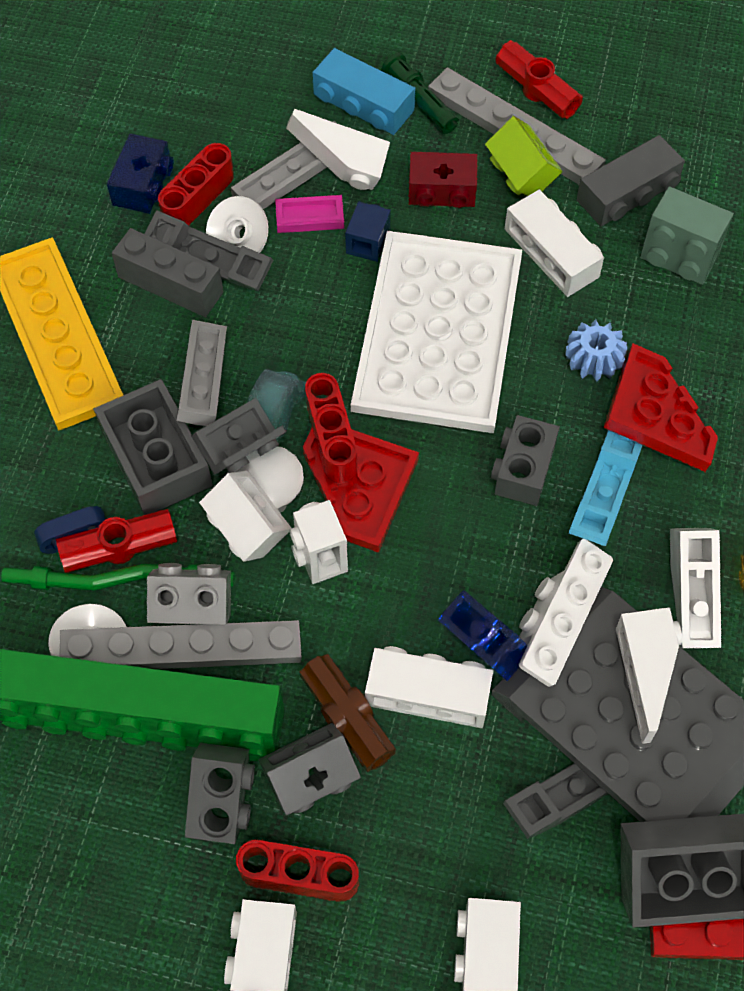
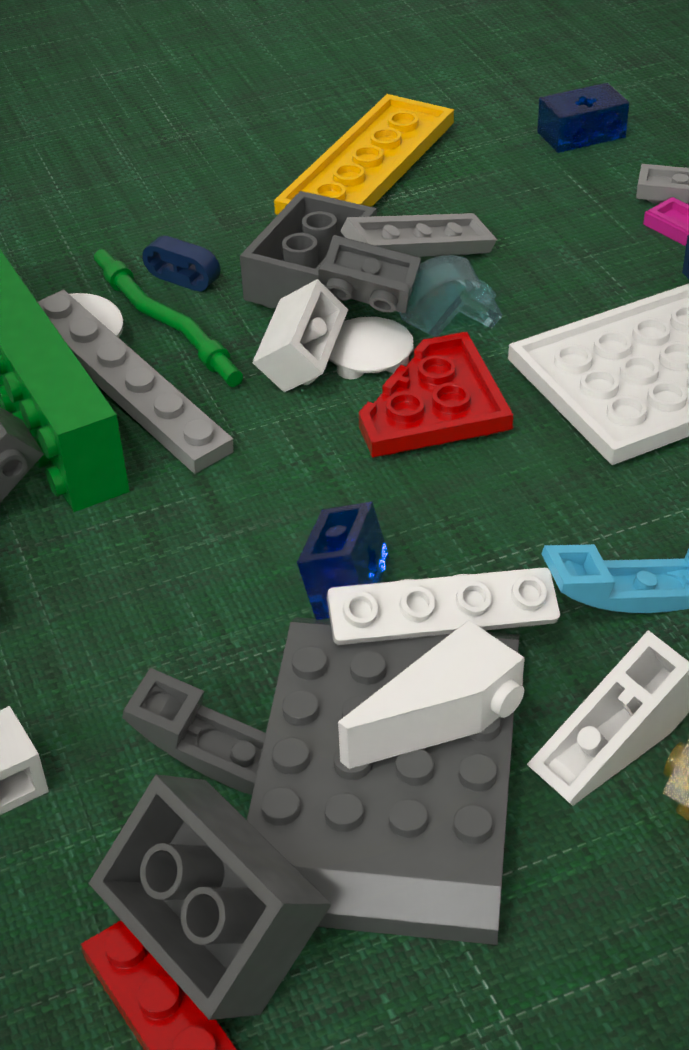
camera: 55 degrees right, 20 degrees down
(94, 547) = (197, 288): red piece -> none
(168, 272) = (503, 178): dark grey brick -> none
(189, 595) = (180, 350): light grey brick -> none
(198, 183) = (613, 148): red beam -> none
(232, 216) = (602, 189): white dish -> none
(236, 264) = (553, 182): dark grey slope -> none
(289, 766) = (44, 504): dark grey brick -> none
(319, 541) = (323, 390): white brick -> none
(334, 442) = (457, 332): red beam -> none
(348, 711) = (160, 522): reddish brown piece -> none
(428, 686) = (247, 563): white brick -> none
(527, 460) = (605, 497): dark grey brick -> none

